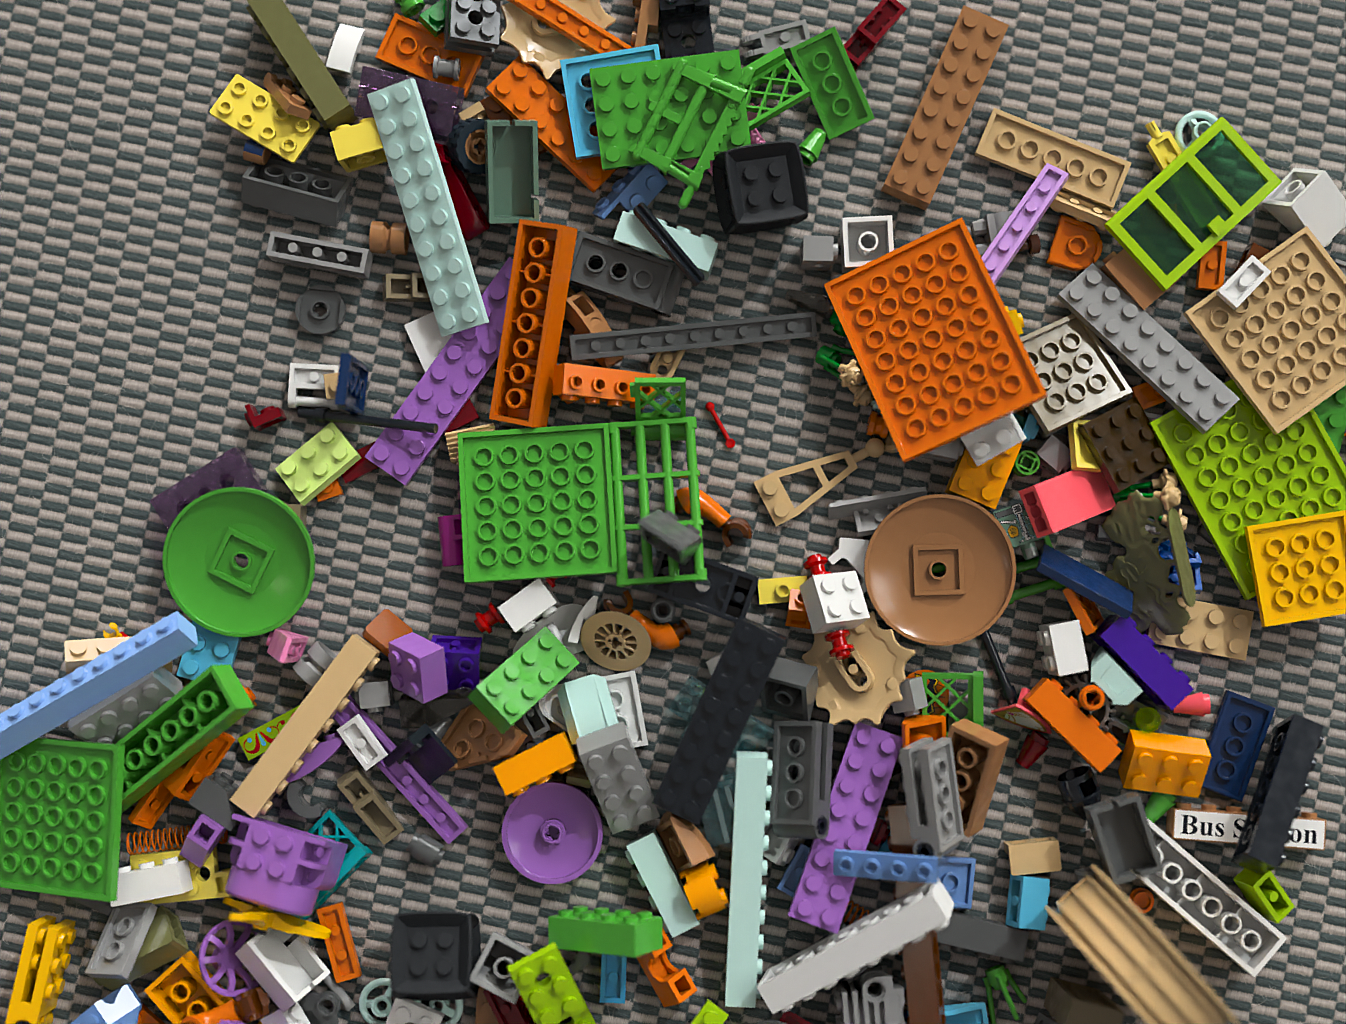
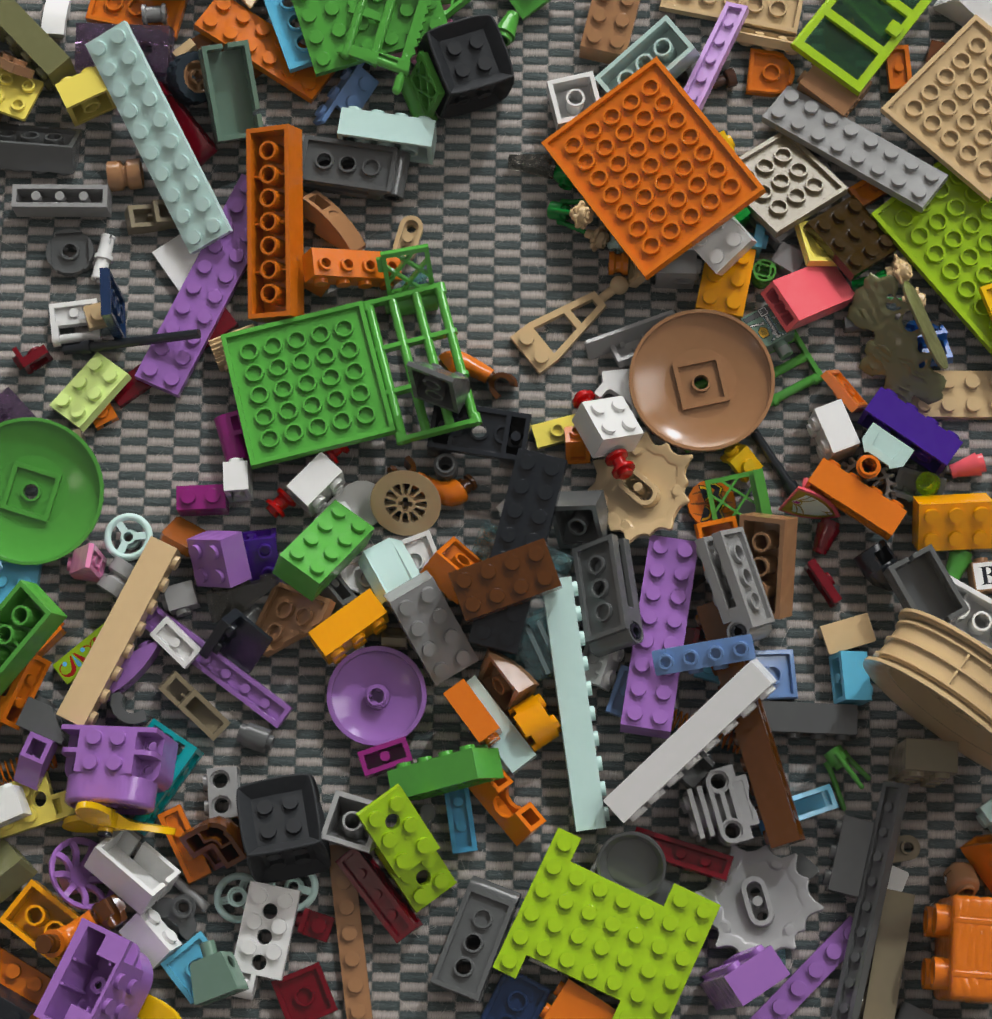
camera: 15 degrees left, 10 degrees down
(341, 622) = (127, 545): none -> light aqua piece
(353, 322) = (103, 255): none -> white pin
(368, 948) = (217, 840): none -> reddish brown brick
(390, 901) = (226, 793): none -> light grey brick
(412, 598) = (201, 500): none -> magenta brick
(450, 586) = (237, 480): none -> white brick
(549, 897) = (384, 757): none -> magenta brick
(586, 612) = (374, 476): white slope -> none
(643, 879) = (473, 713): none -> orange brick
(653, 720) = (447, 559): none -> orange slope
(668, 244) = (389, 127): black axle -> none
(692, 336) = (427, 210): dark grey plate -> none
(699, 756) = (505, 580): none -> reddish brown brick
(711, 205) = (421, 87): none -> bright green piece
(730, 443) = (481, 306): red hinge -> none
(818, 253) = (530, 117): light grey brick -> none
(913, 697) = (699, 505): light grey brick -> none
(963, 657) = (741, 459): none -> yellow bracket
(969, 199) = (660, 40): none -> light aqua brick
(1020, 797) = (823, 582): none -> dark red plate
(1085, 581) = (840, 365): dark blue tile -> none
(1243, 282) = (927, 71): white plate -> none

